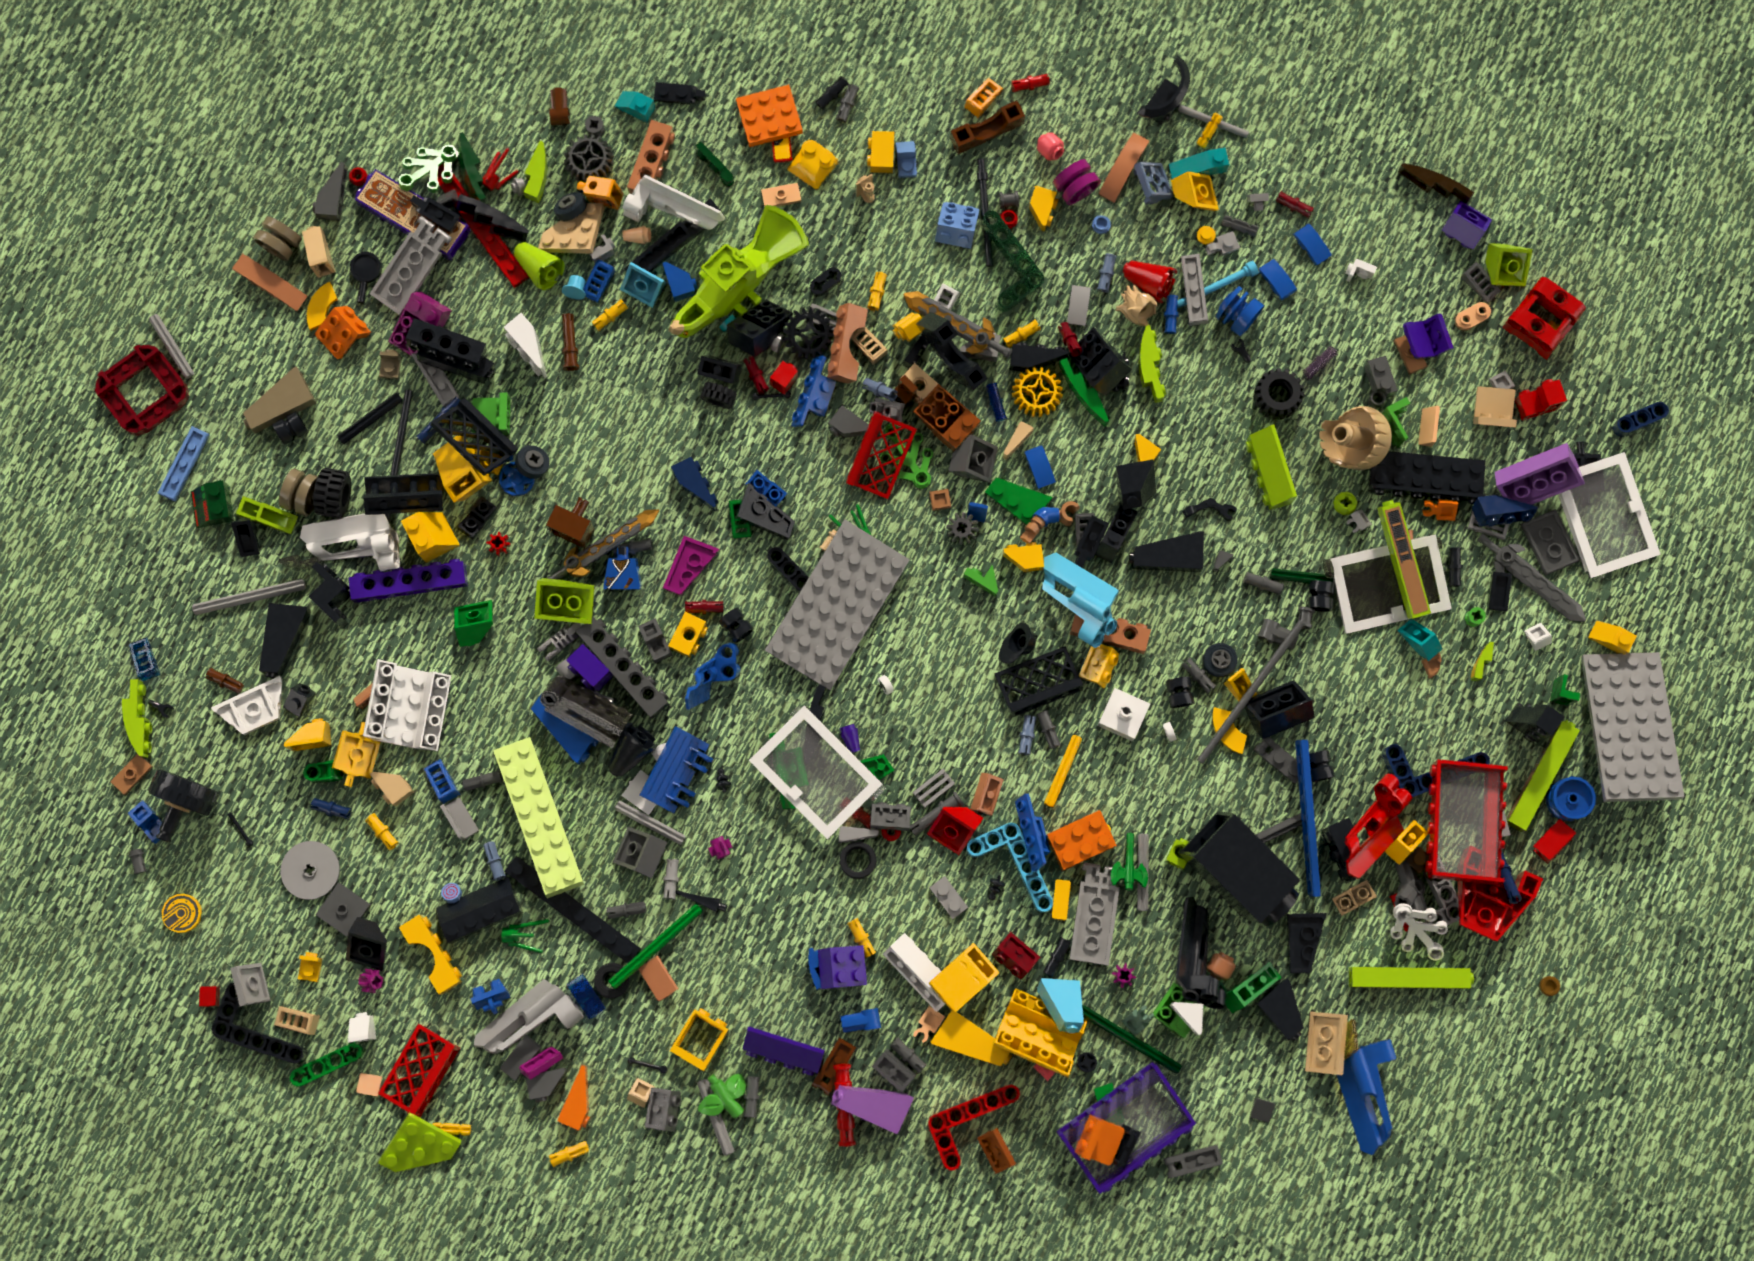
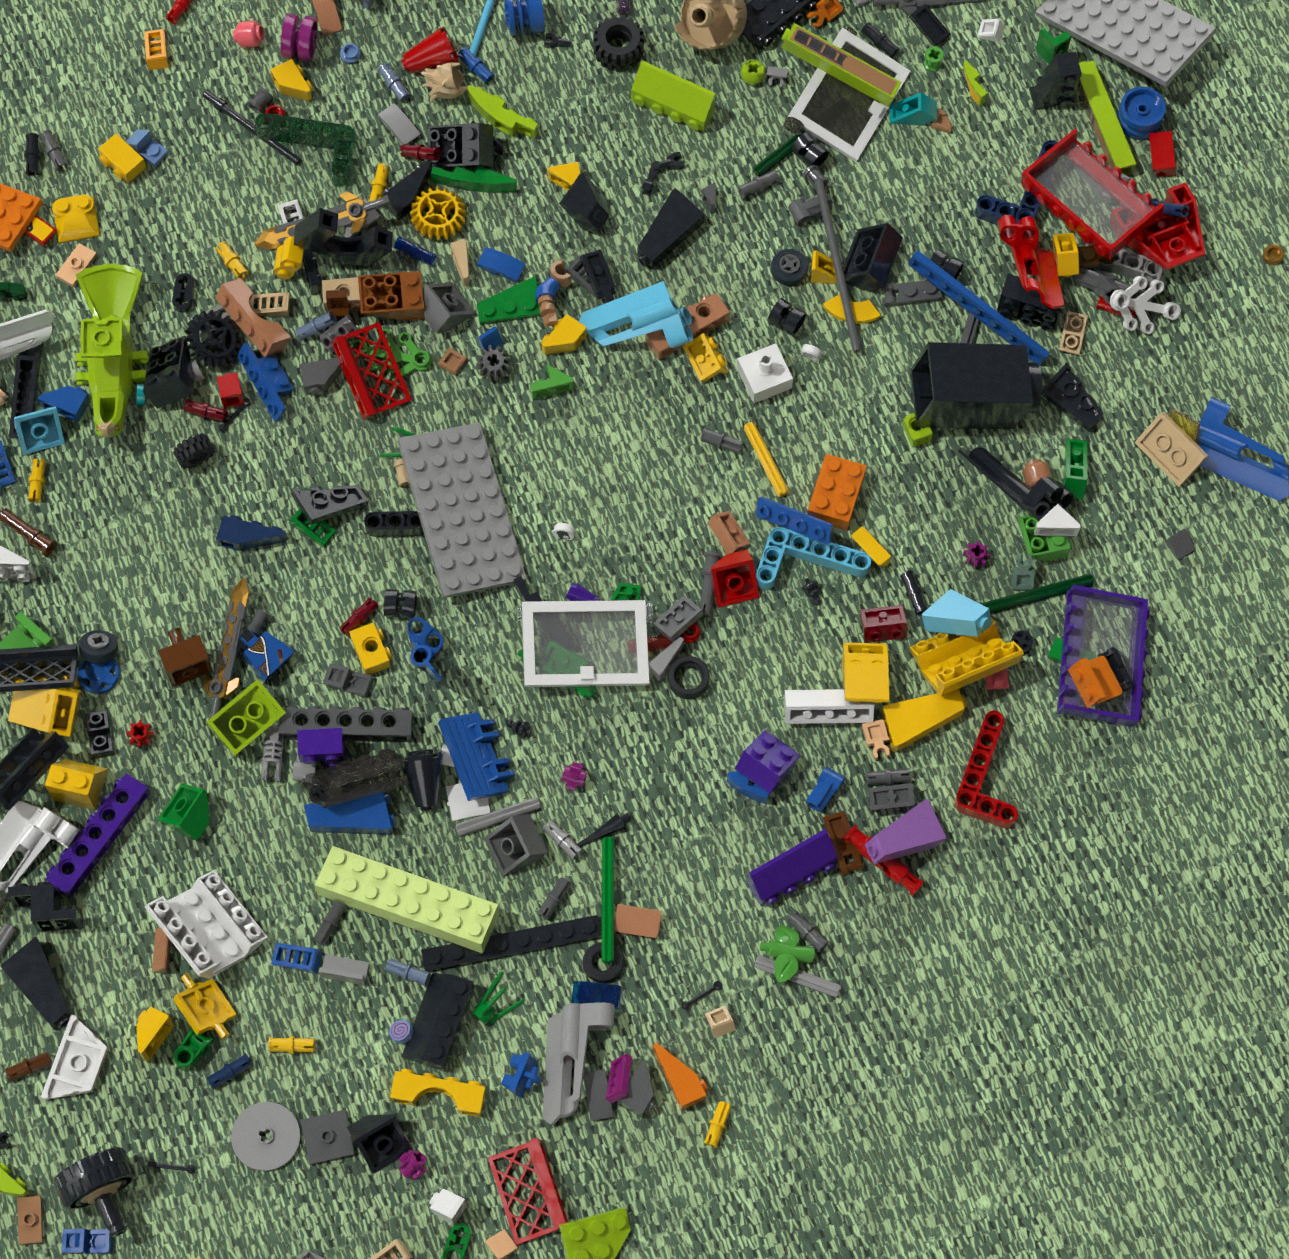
camera: 50 degrees left, 10 degrees down
(298, 699) = (107, 1017): black bracket -> none
(310, 967) = (350, 1208): yellow bracket -> none
(393, 786) = (261, 1000): tan slope -> none
(454, 1129) = (608, 1203): yellow axle -> none
(663, 1109) = (751, 1013): flat silver bracket -> none
(688, 564) = (310, 598): magenta wing -> none
(704, 1015) = (727, 952): yellow window -> none
(719, 369) = (173, 432): black brick -> none
(767, 488) = (305, 483): blue slope -> none
(861, 937) = (753, 729): yellow pin -> none
(865, 188) = (140, 193): tan hinge -> none
(946, 778) = (685, 551): light grey tile -> none
(948, 897) = (786, 634): light grey plate -> none
(957, 225) = (241, 156): medium blue bracket -> none
(996, 1150) = (1031, 771): dark orange bracket -> none
(1002, 121) = (192, 48): reddish brown arch -> none
(1018, 642) = (628, 402): black piece -> none
(1027, 735) = (711, 460): sand blue pin -> none
(1045, 696) = (692, 420): black fence -> none
(1094, 916) = (907, 534): light grey hinge -> none
(1116, 534) = (613, 253): black slope -> none
(1128, 873) = (896, 478): green piece -> none
(1143, 857) = (906, 470): light grey axle -> none
(1193, 1161) = (1175, 630): dark grey plate -> none
(1194, 289) = (473, 31): light grey tile -> none
(1198, 675) = (786, 292): dark grey pin -> none
(1282, 1010) = (1114, 460): black slope -> none
(1410, 977) = (1174, 346): lime brick -> none

